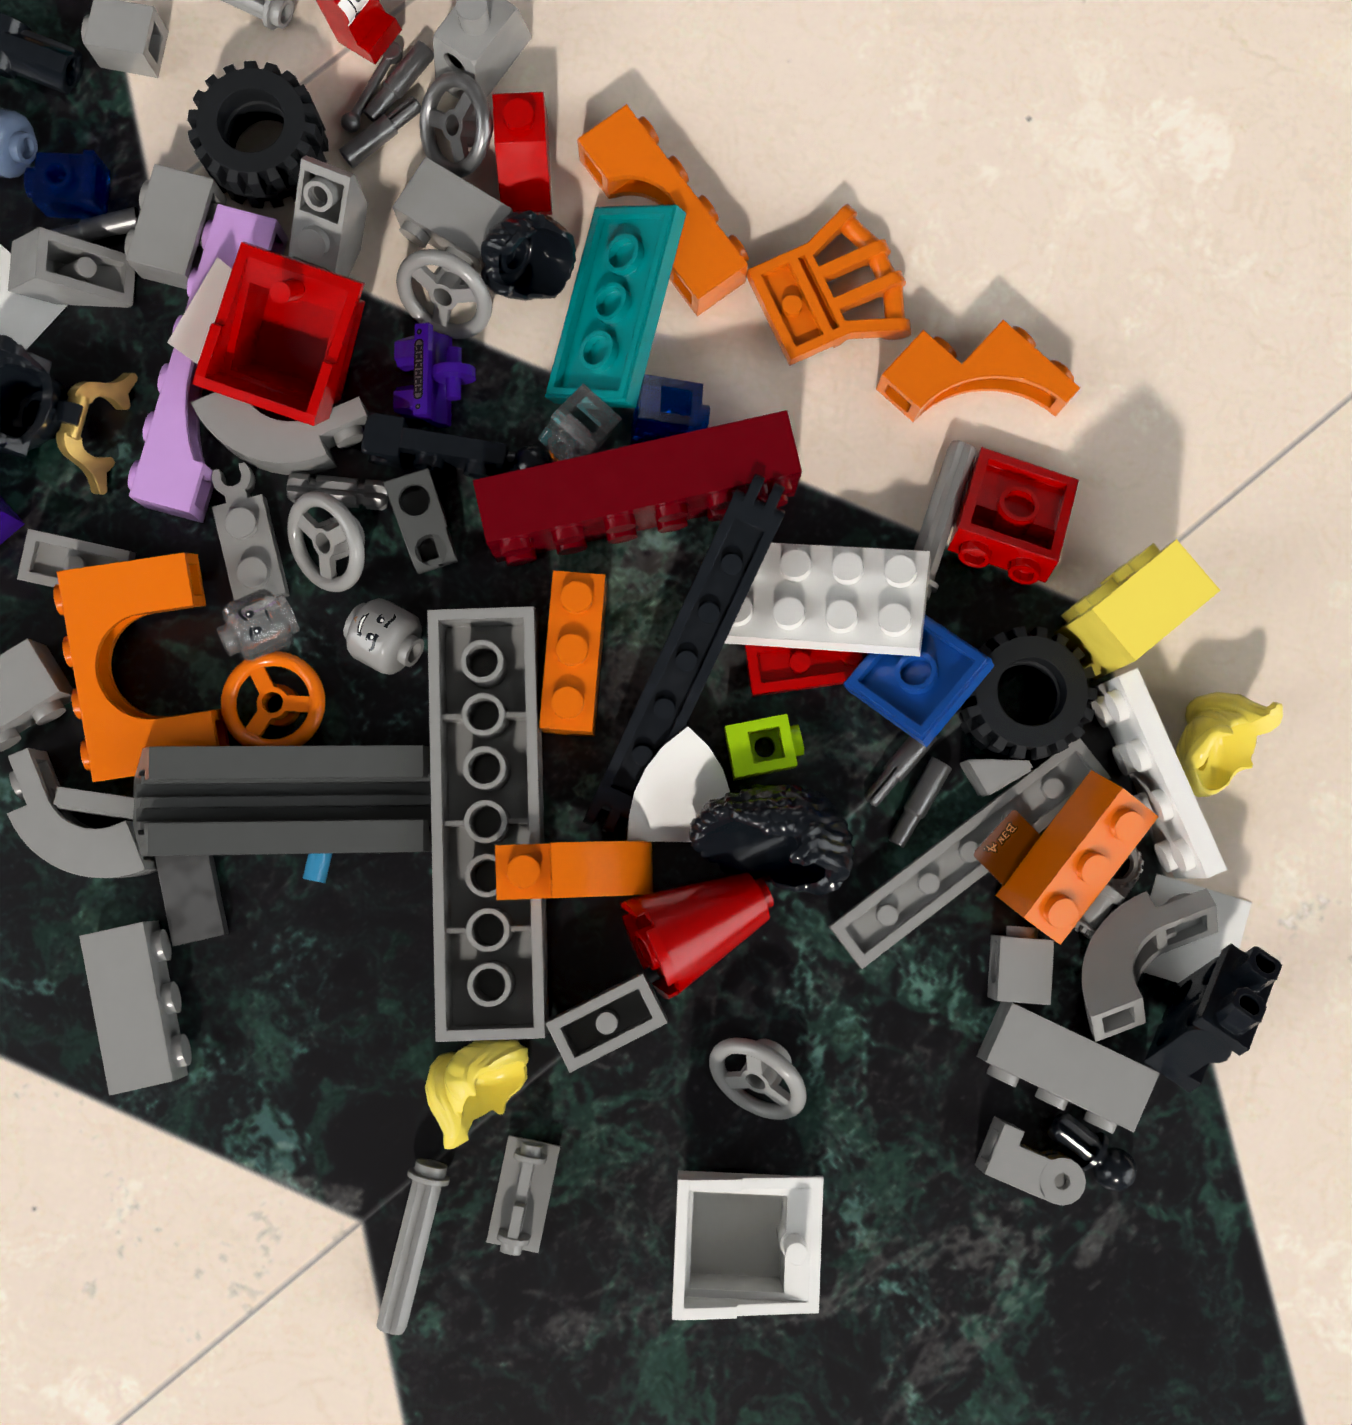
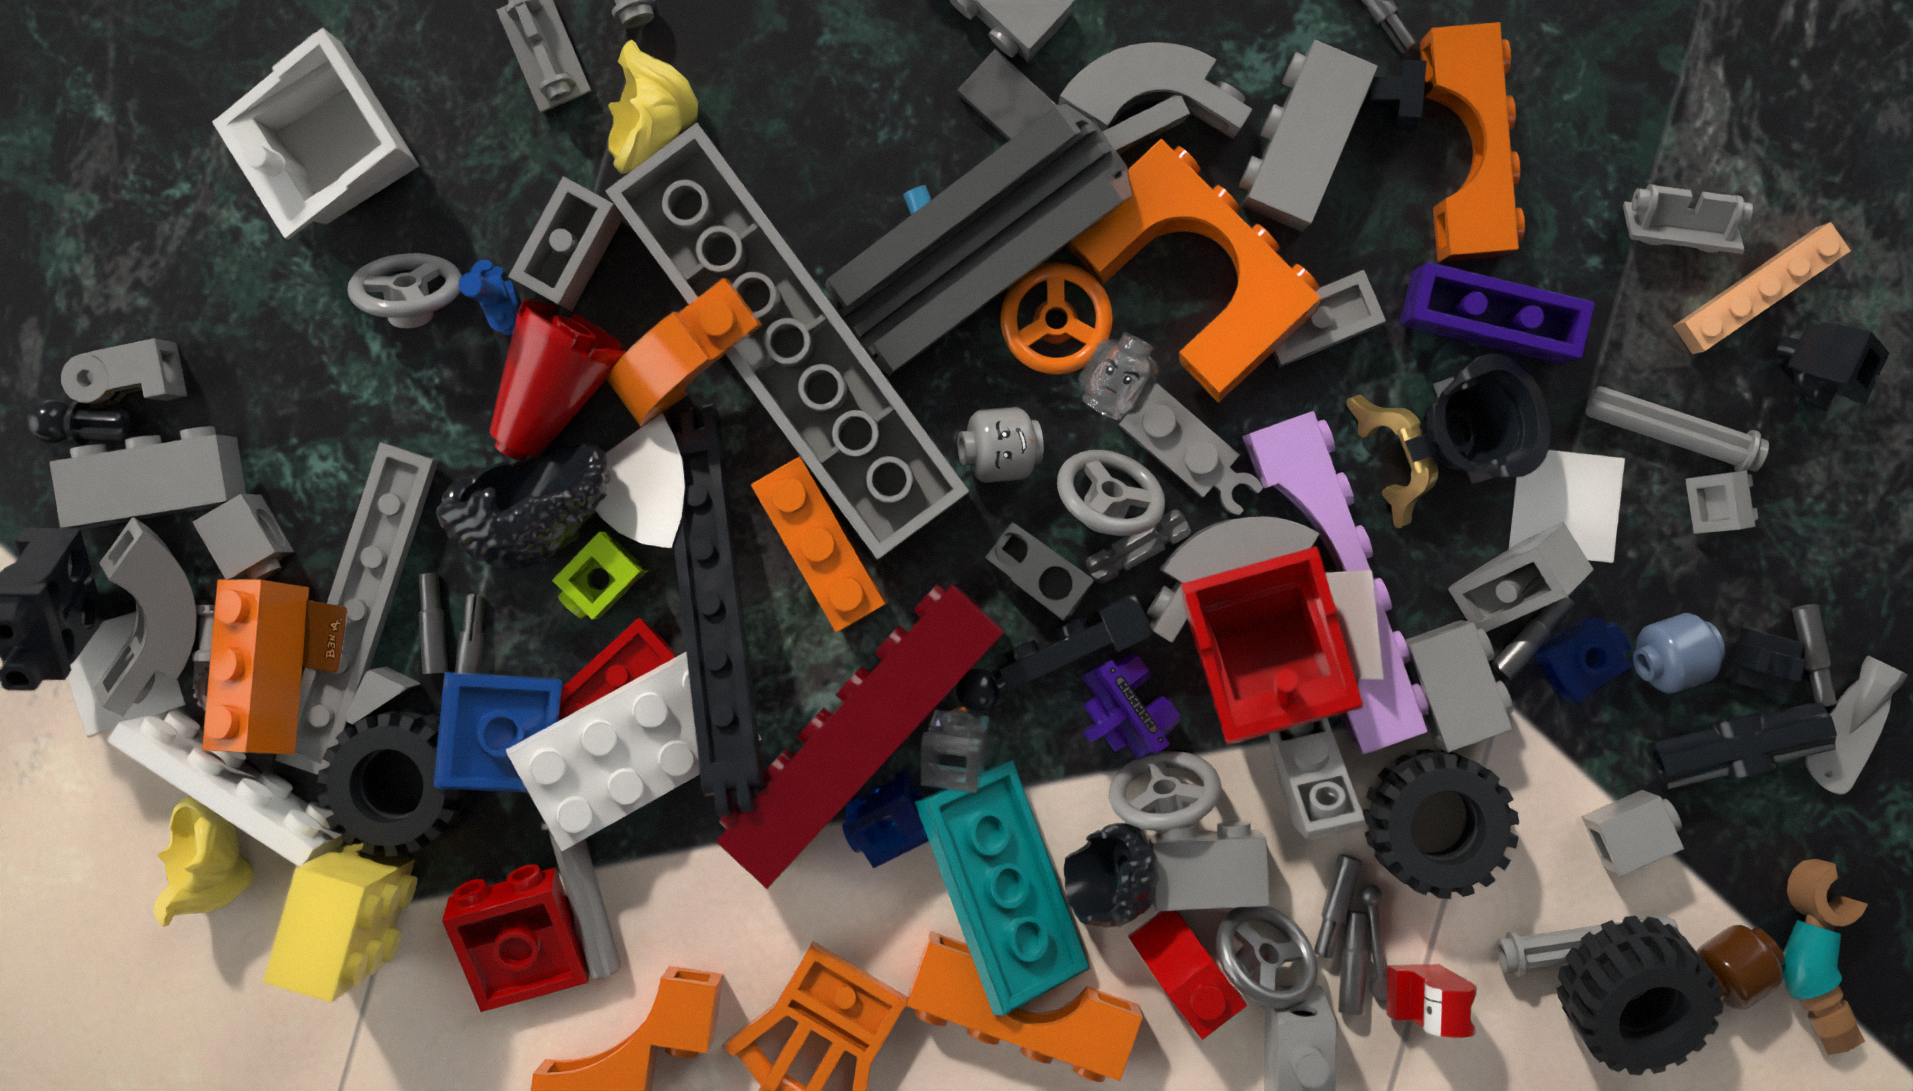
camera: 145 degrees right, 5 degrees up
(693, 1019) = (494, 294): none -> blue piece

